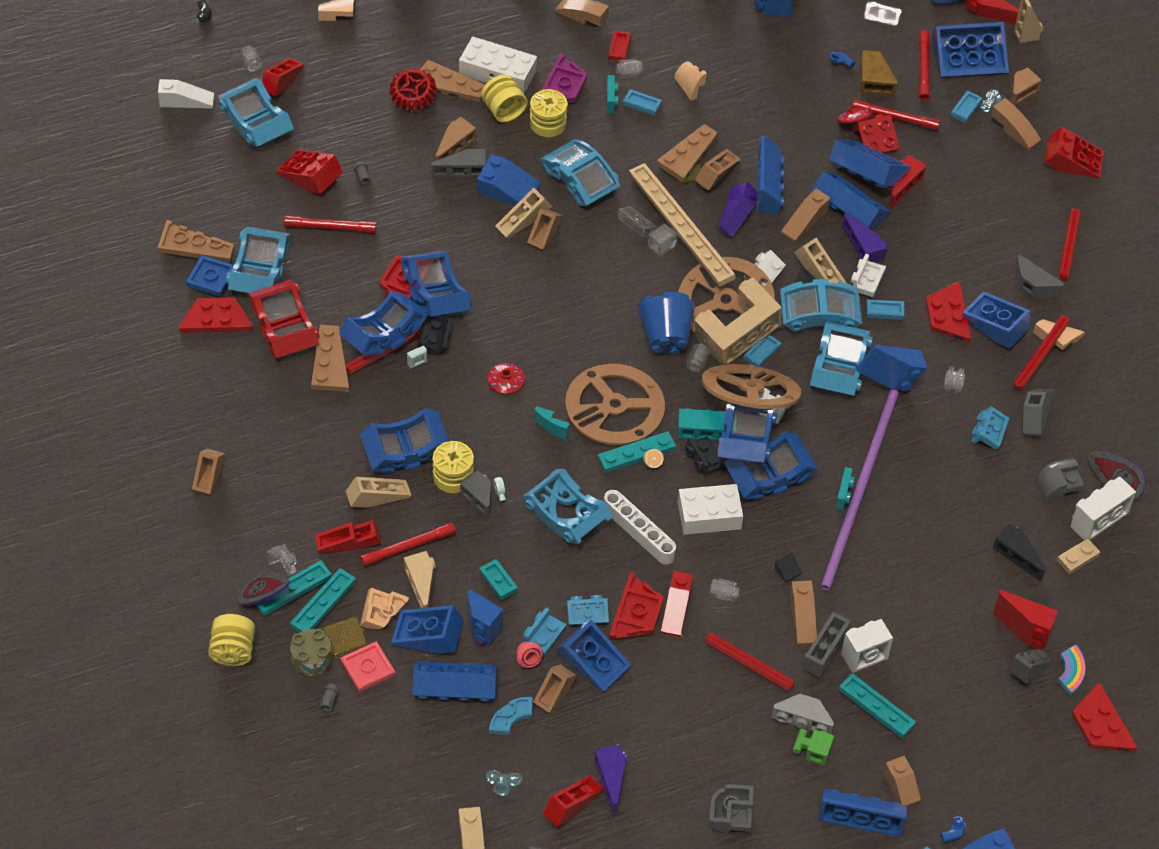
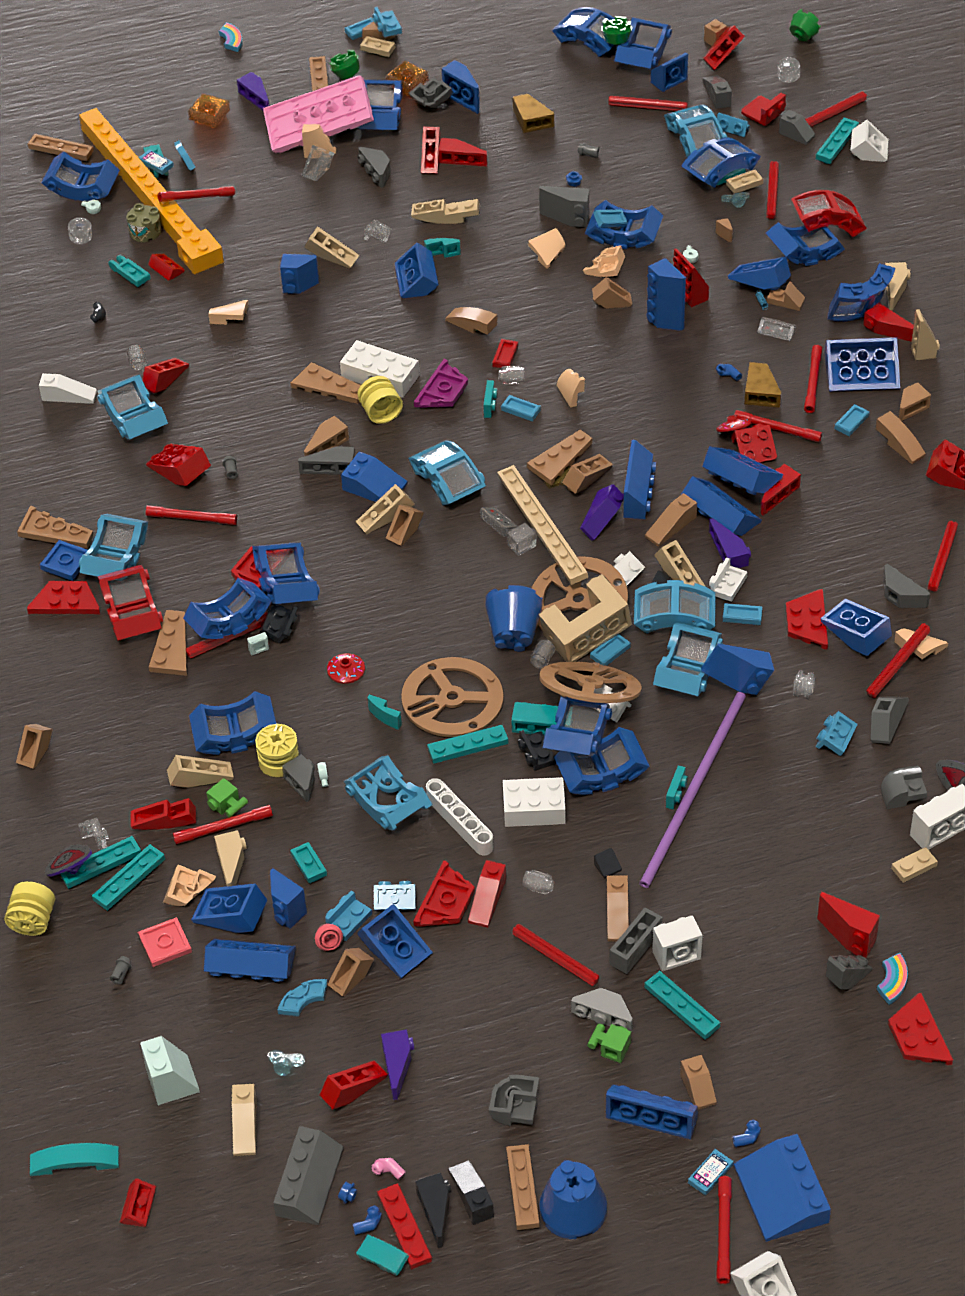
camera: 10 degrees right, 5 degrees down
(311, 652) = (108, 925): olive brick -> none
(345, 636) = (146, 911): clear yellow piece -> none
(392, 798) = (168, 1070): none -> light aqua slope
(407, 516) = (225, 798): none -> bright green brick
(419, 82) = (281, 394): red gear -> none
(548, 113) = (422, 415): light yellow wheel -> none
(653, 458) = (483, 750): light nougat tile -> none
(991, 100) = (879, 411): clear light blue piece -> none
(1017, 548) = (849, 853): black slope -> none

